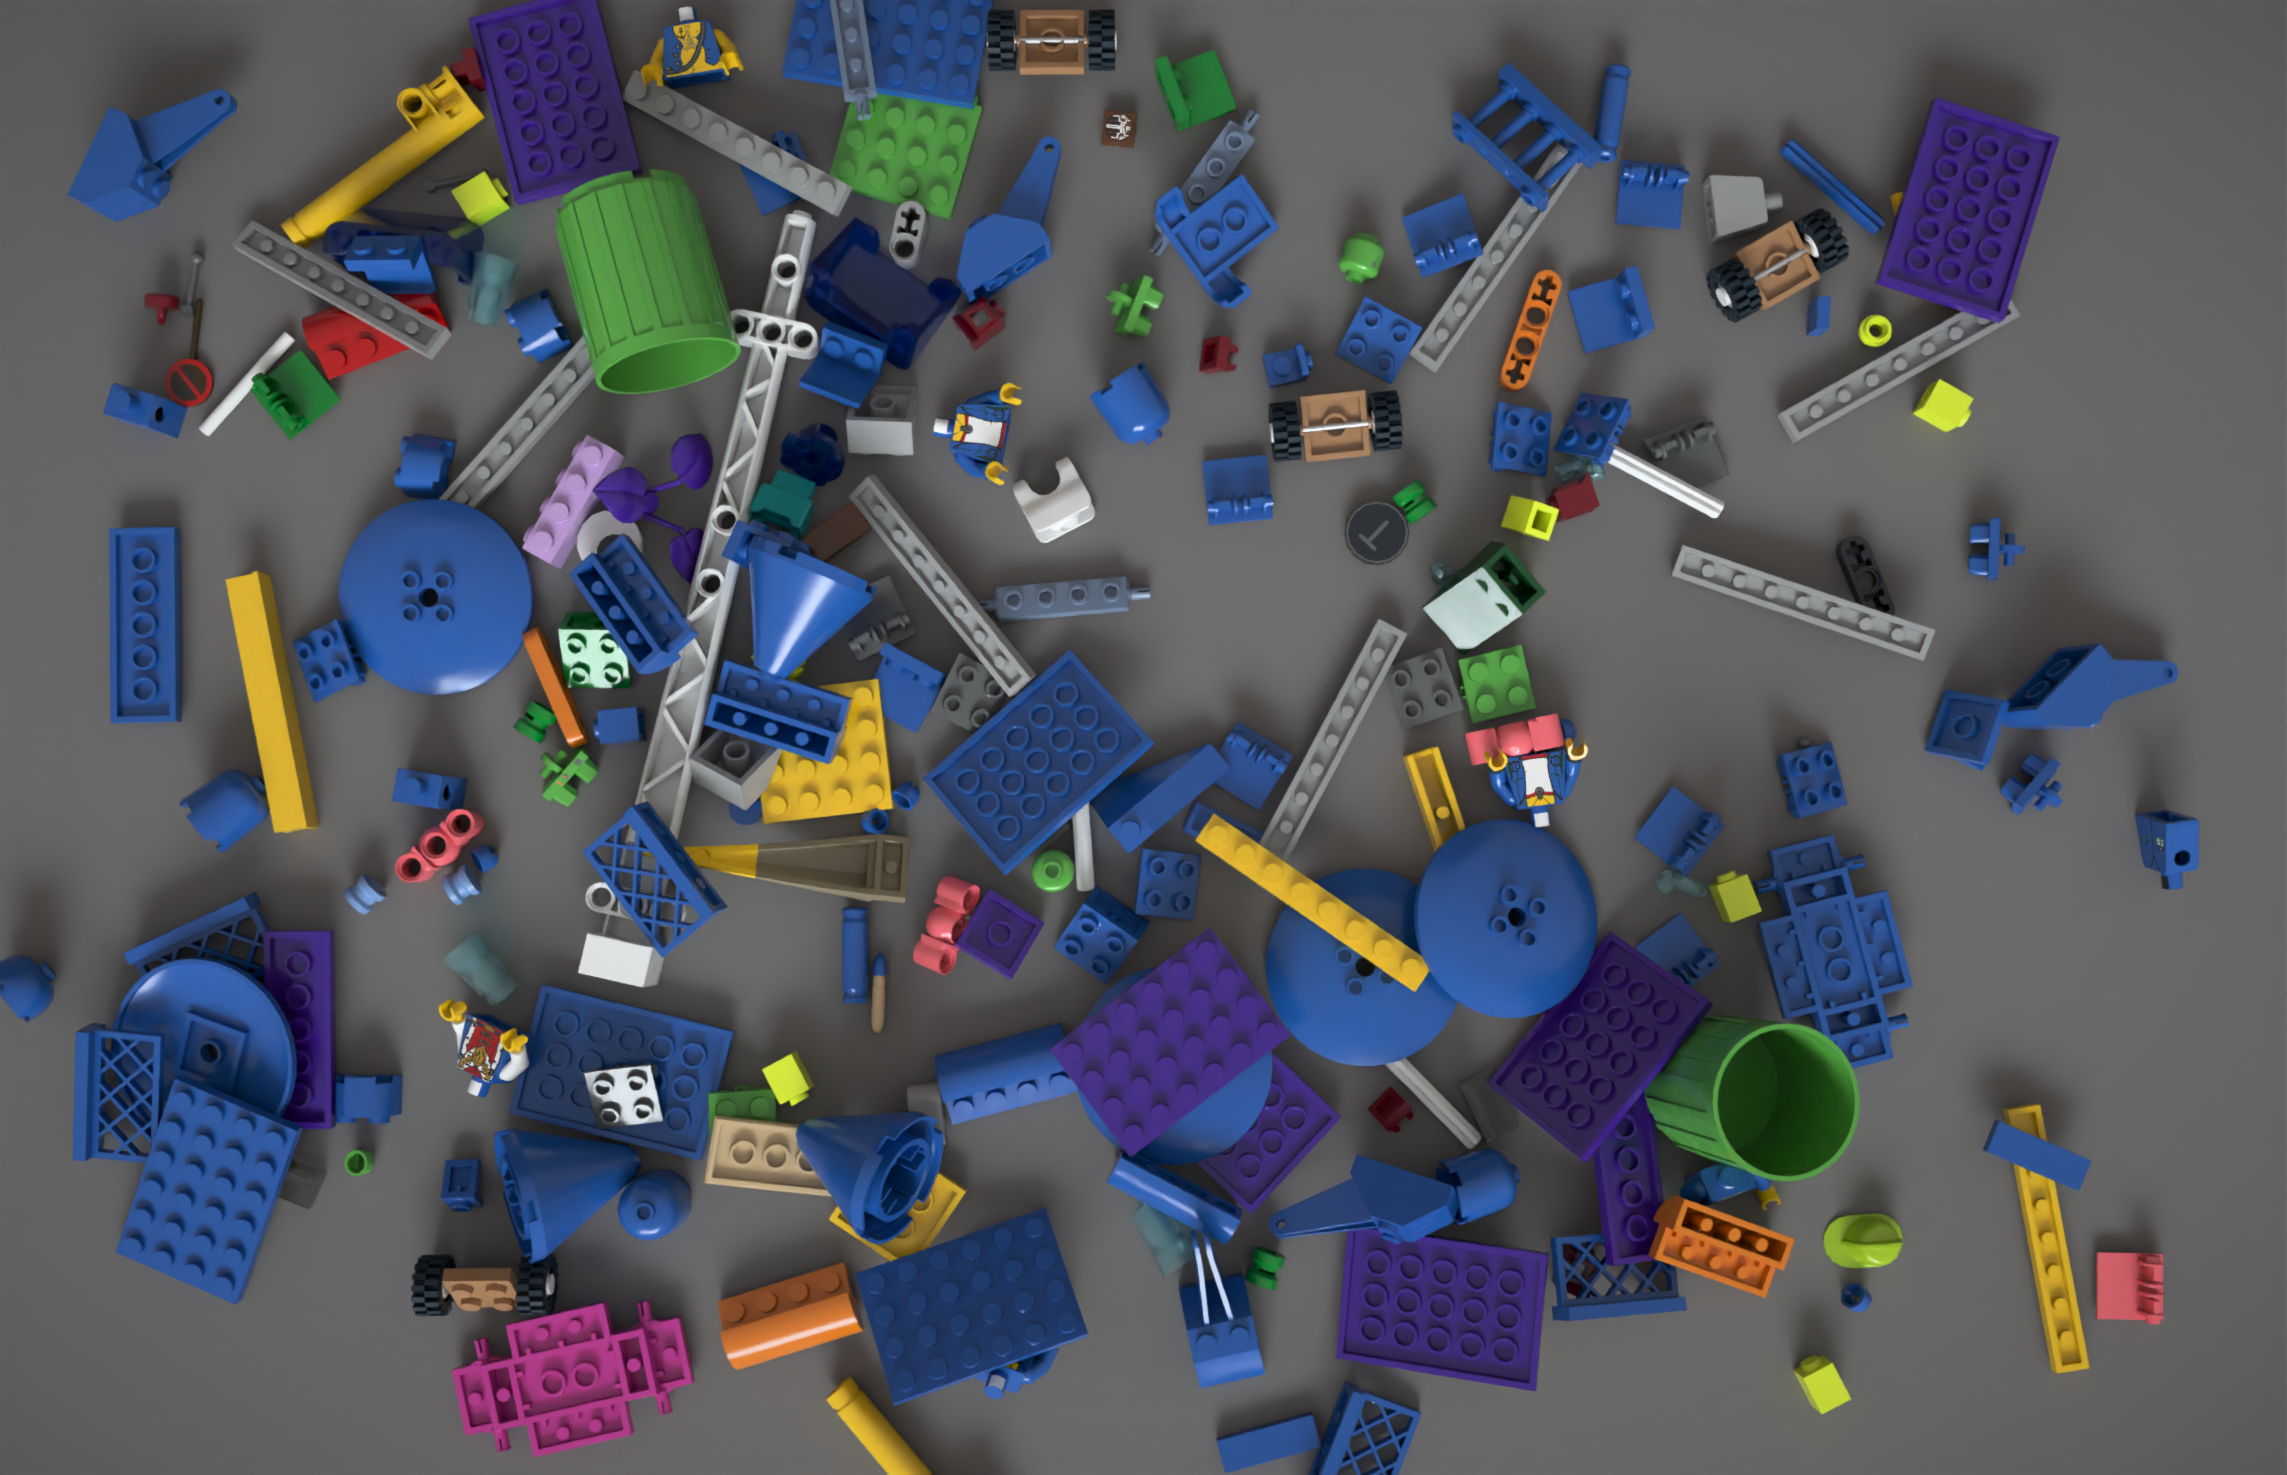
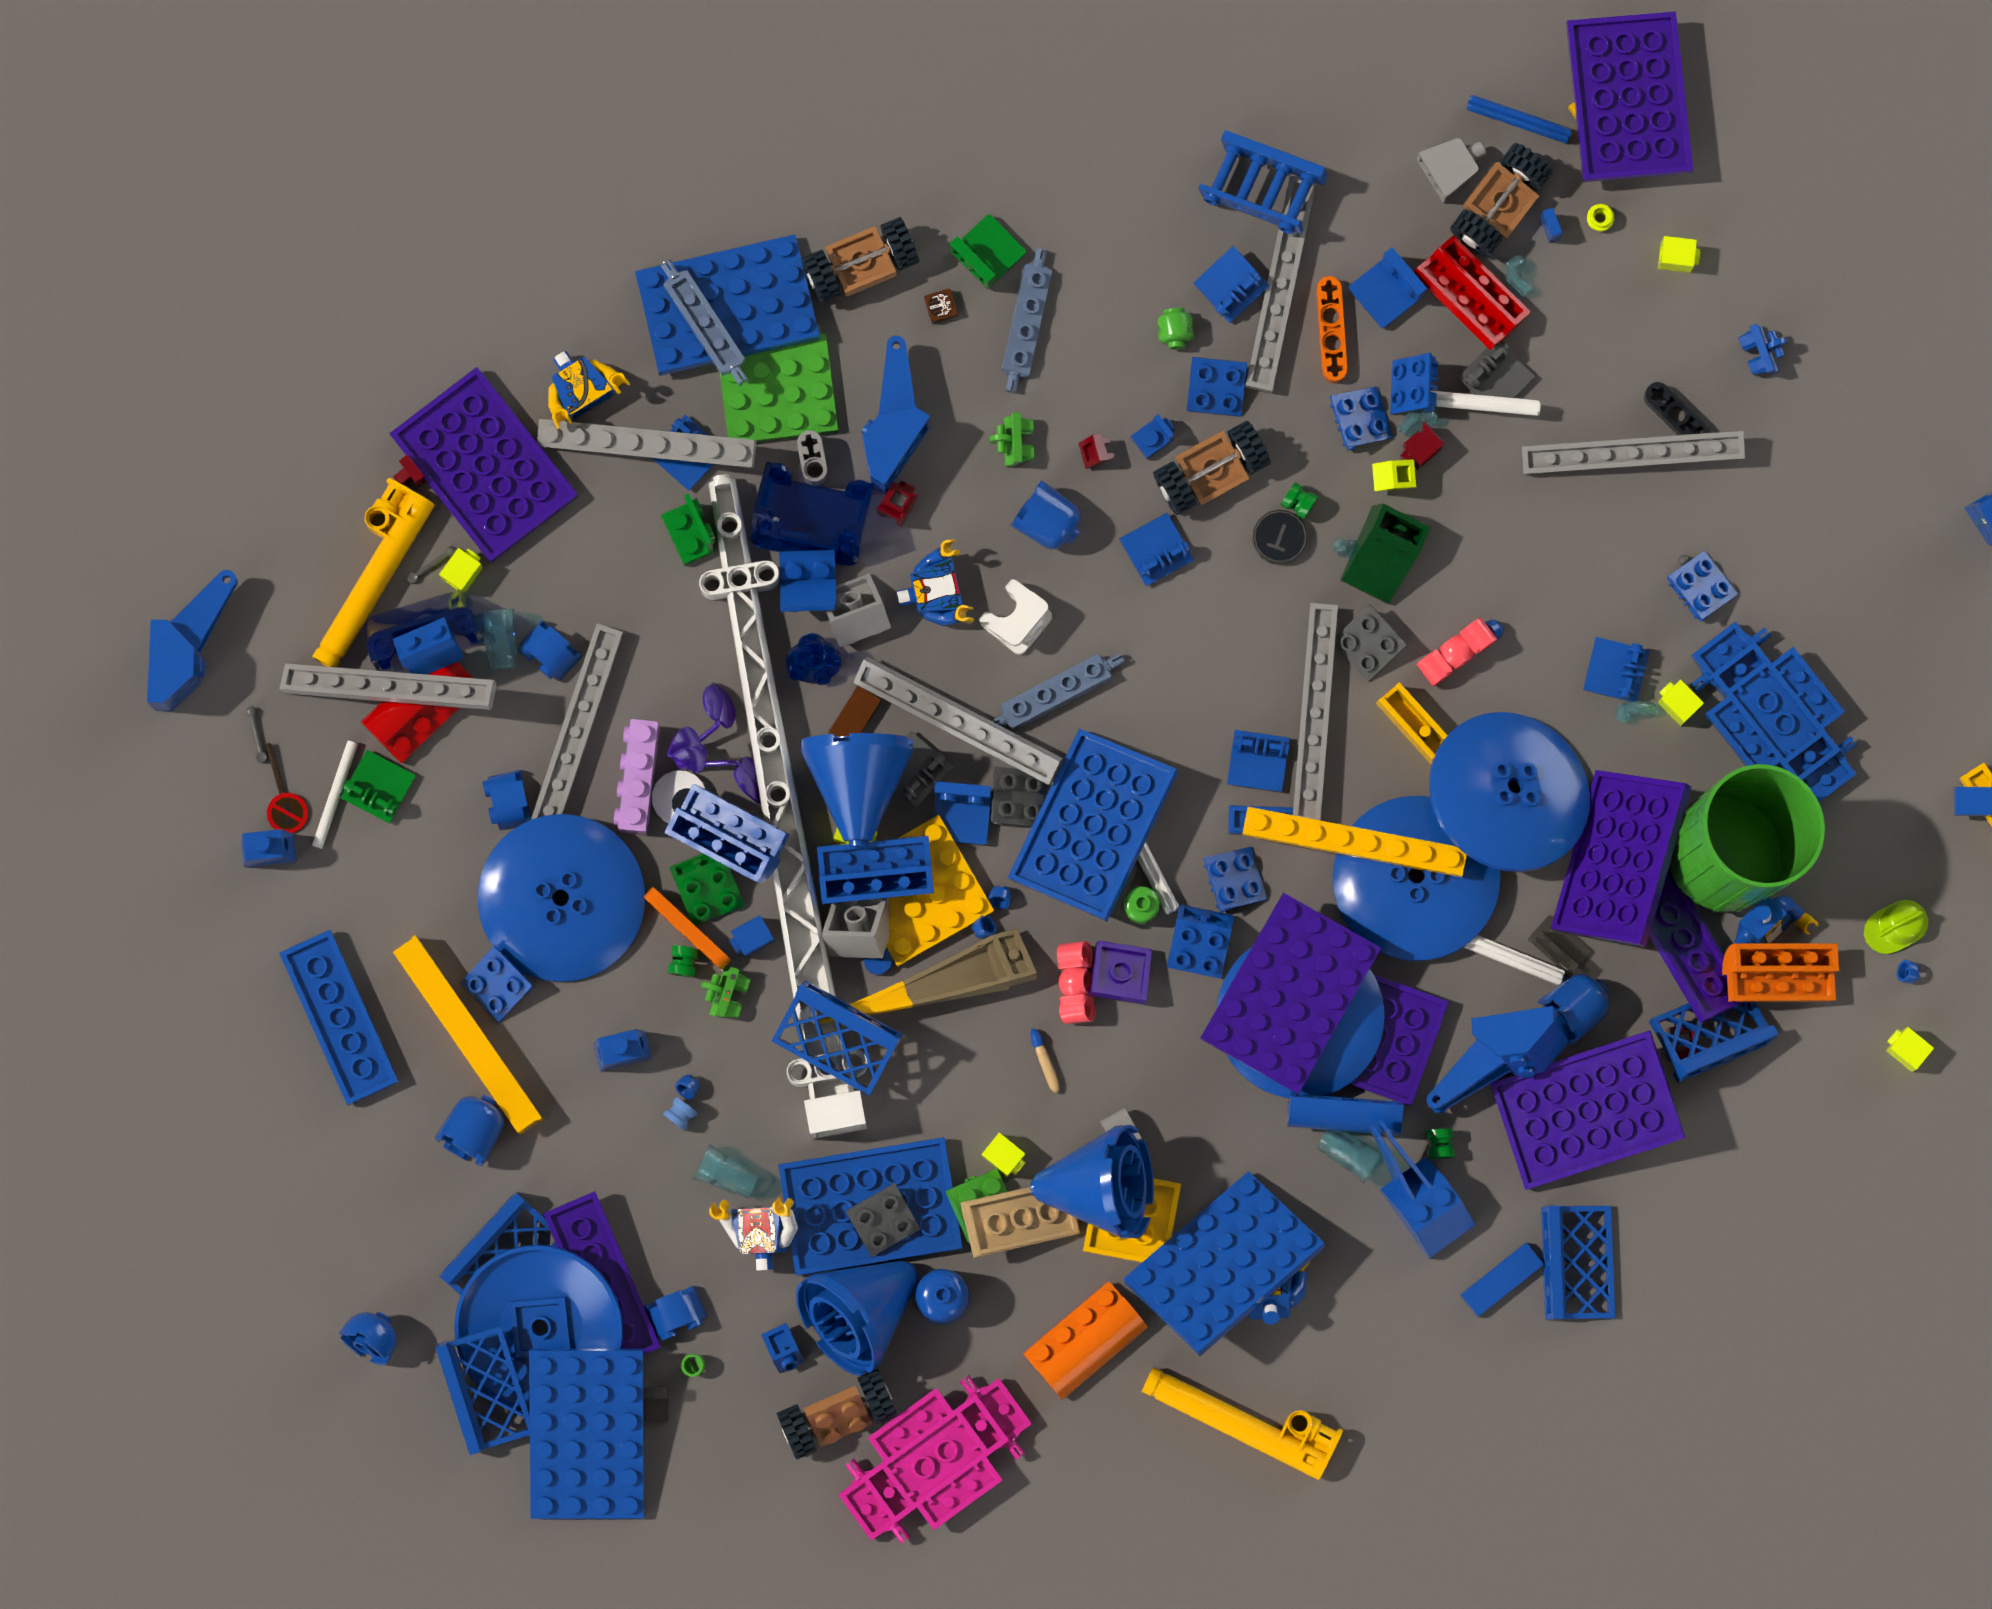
camera: 25 degrees left, 5 degrees down
(162, 304) = (243, 761): dark red tile -> none
(364, 894) = (606, 1153): medium blue wheel -> none
(426, 852) = (654, 1077): coral piece -> none
(645, 283) = (633, 581): bright green container -> none
(742, 258) = (687, 531): none -> green bracket
(742, 534) = (791, 748): blue bracket -> none
(785, 503) = (806, 708): teal piece -> none
(855, 955) = (1013, 1037): blue axle -> none
(1002, 1074) = (1172, 1080): blue brick -> none
(1149, 798) = (1192, 817): blue wedge -> none
(1216, 235) = (1055, 358): blue piece -> none
(1390, 1110) = (1484, 979): dark red tile -> none
(1495, 683) = (1423, 615): bright green plate -> none
(1536, 779) = (1486, 676): torso -> none
(1611, 110) = (1321, 132): blue axle -> none
(1650, 194) = (1379, 184): blue hinge -> none
(1680, 951) = (1657, 761): blue hinge -> none
(1701, 353) = (1472, 293): none -> red brick
(1755, 354) = (1514, 275): none -> clear light blue arm
(1887, 372) = (1624, 245): light grey plate -> none
(1967, 728) = (1802, 496): blue bracket -> none
(2041, 773) = (1876, 508): blue hips -> none
(2079, 686) = (1872, 426): blue slope -> none

